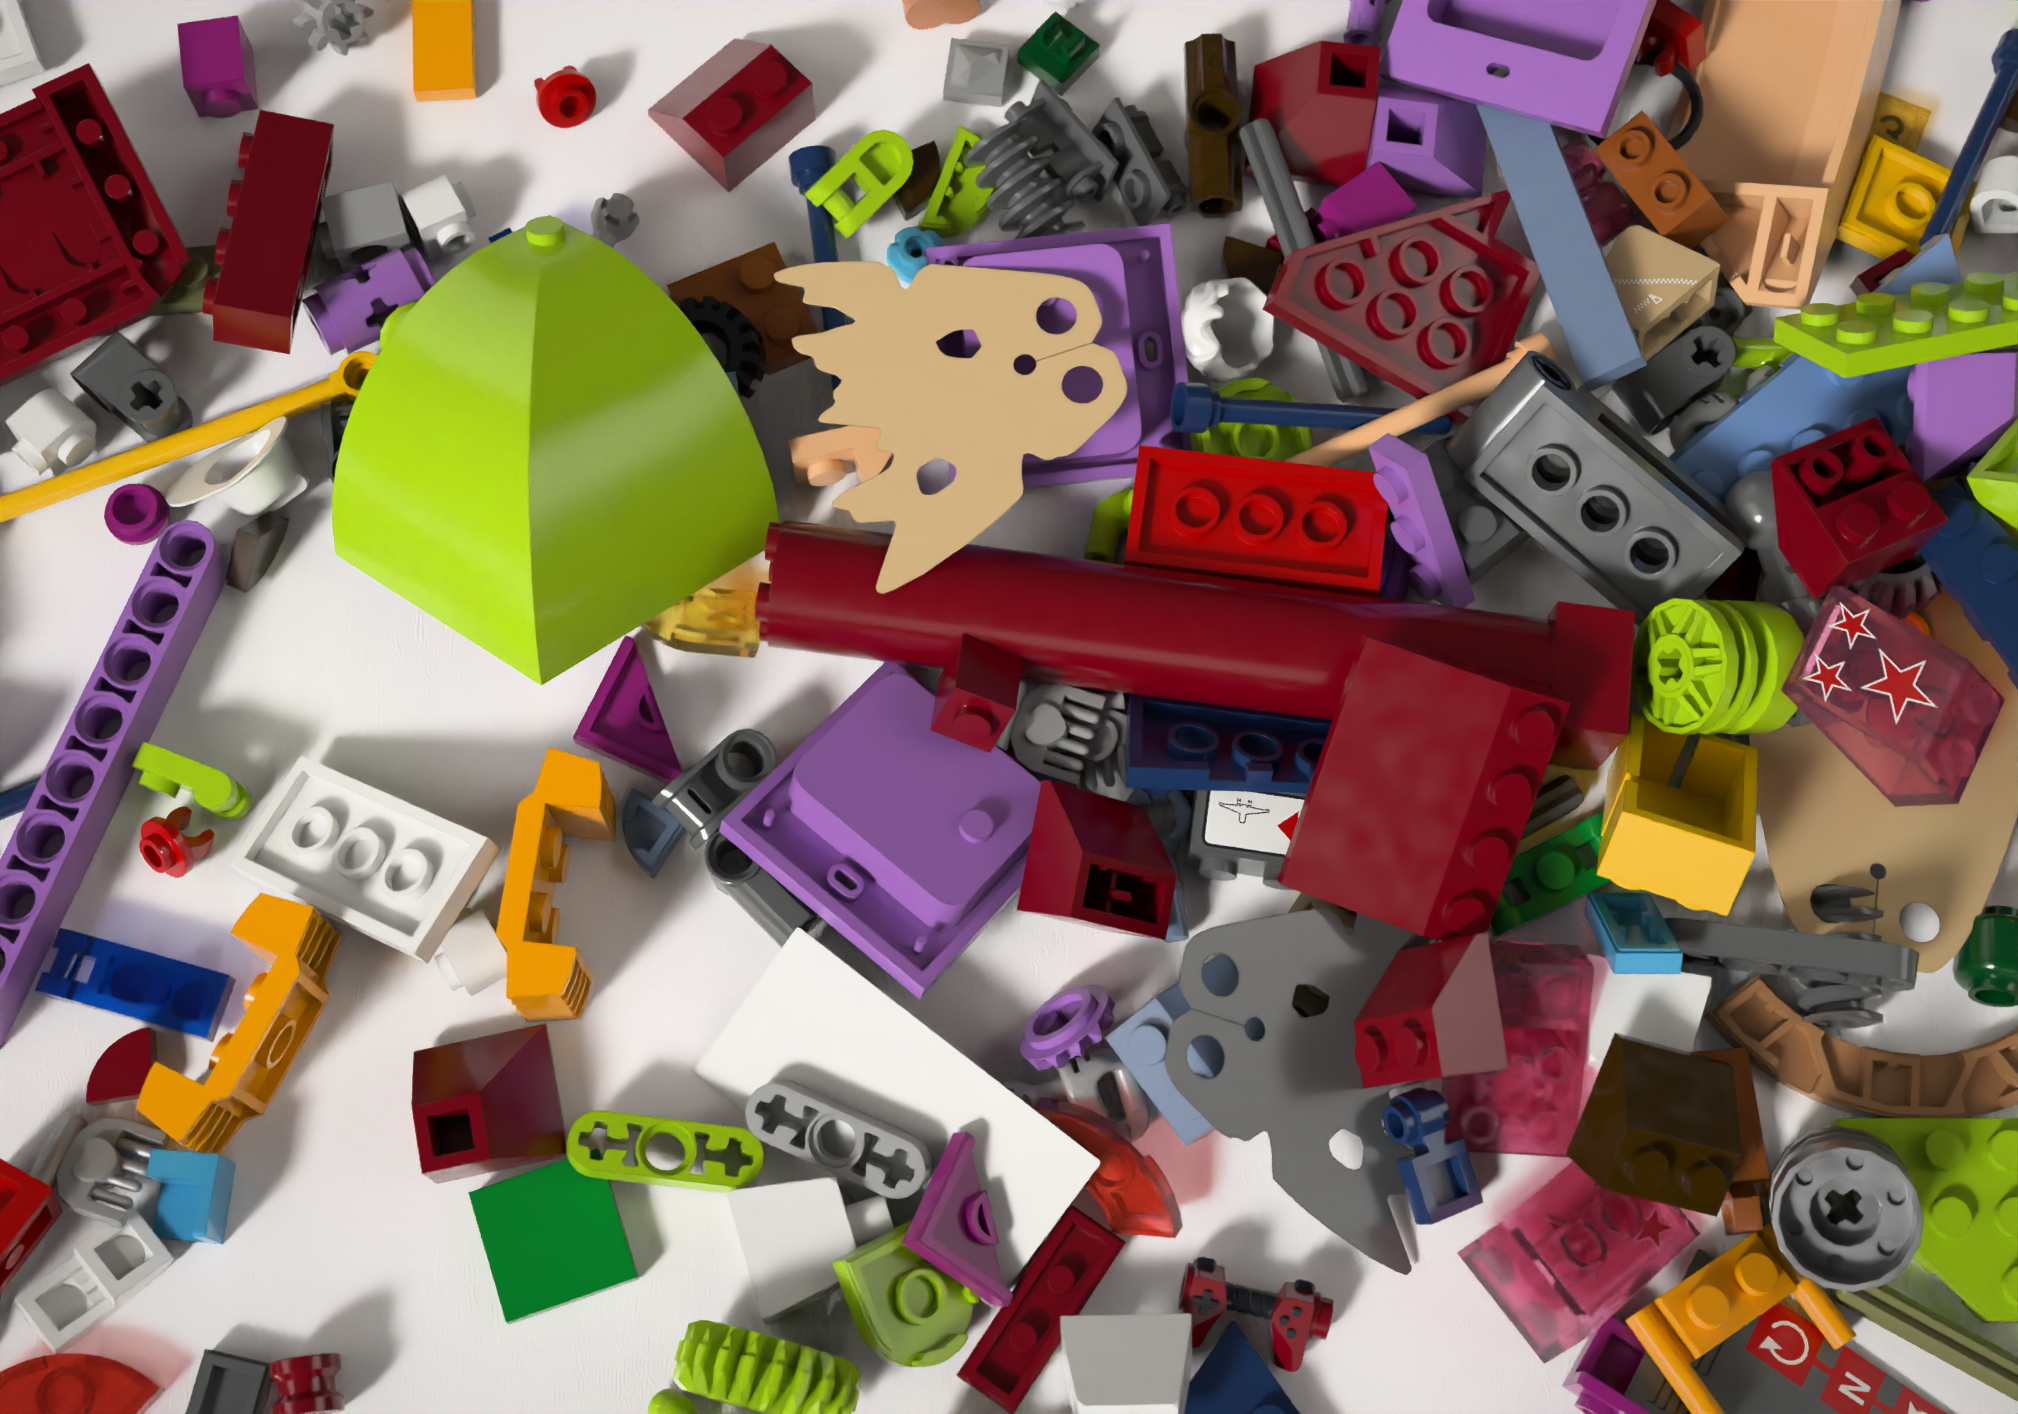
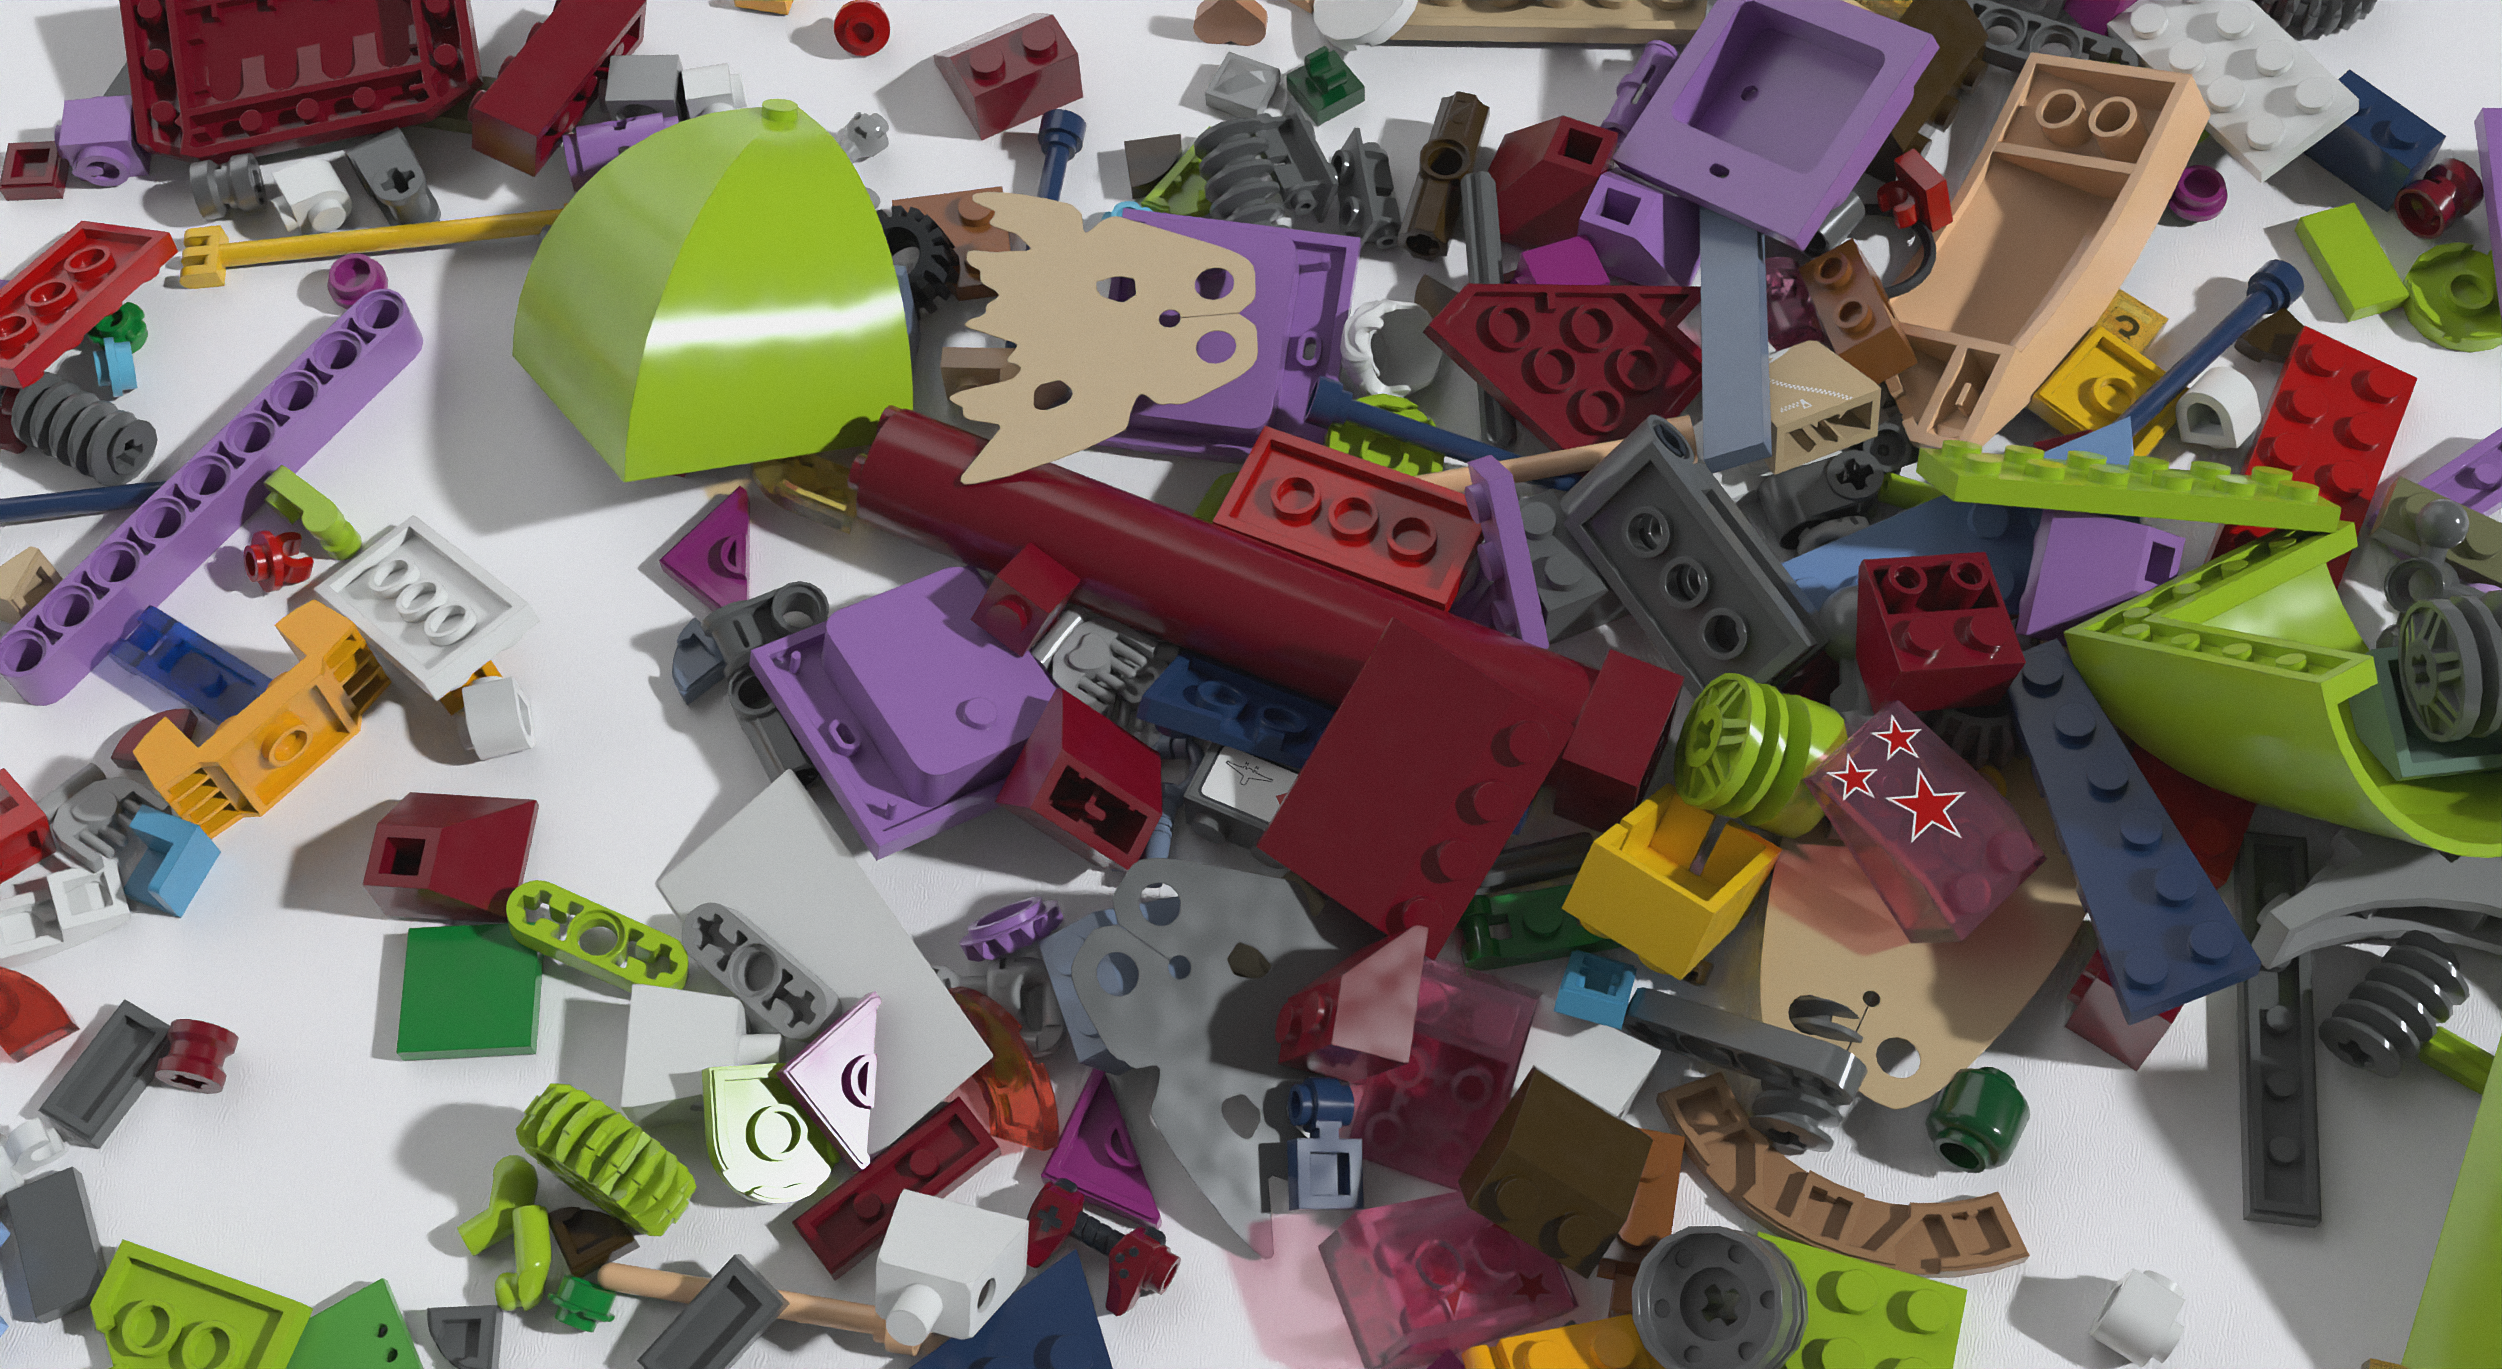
camera: 25 degrees right, 10 degrees down
(246, 475) = (465, 275): white piece -> none
(255, 550) = (445, 335): dark brown tile -> none
(568, 801) = (567, 660): light orange plate -> none
(878, 165) = (1115, 136): lime plate -> none
(1223, 1222) = (1101, 1157): none -> magenta tile

